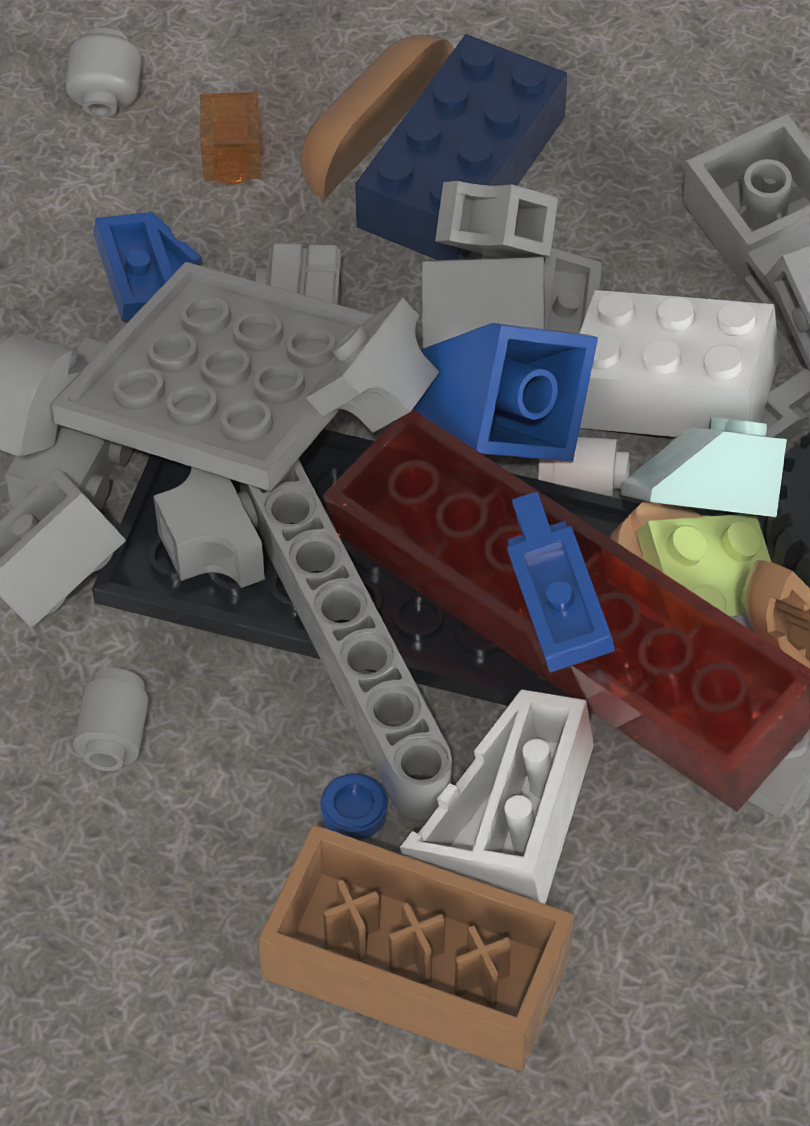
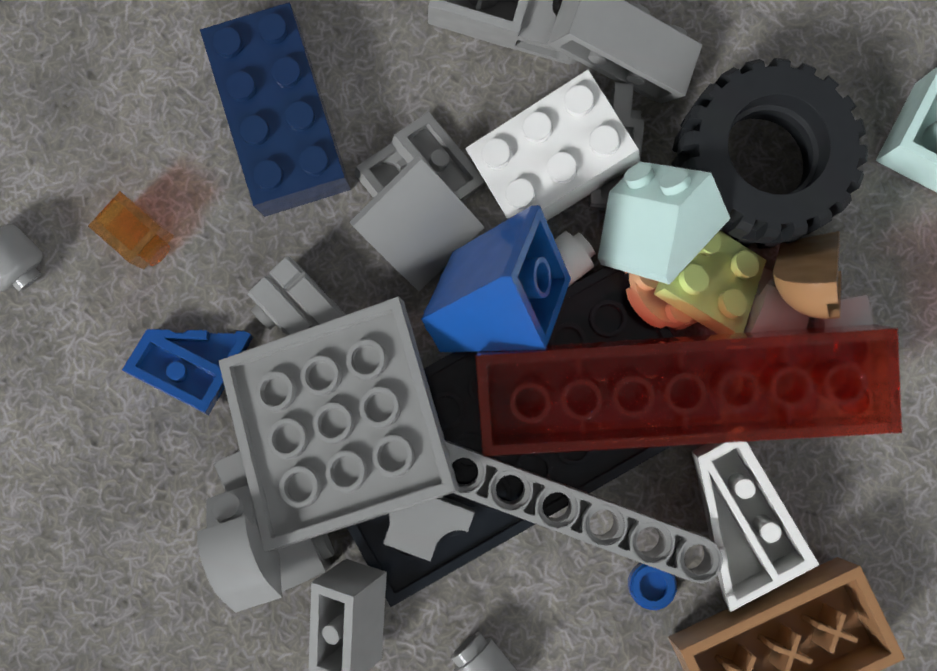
camera: 45 degrees left, 30 degrees up
(369, 110) = (188, 129): medium nougat brick -> none
(376, 369) = (436, 354): light grey brick -> none
(496, 219) = (370, 157): light grey brick -> none
(557, 588) = (700, 410): blue hinge -> none

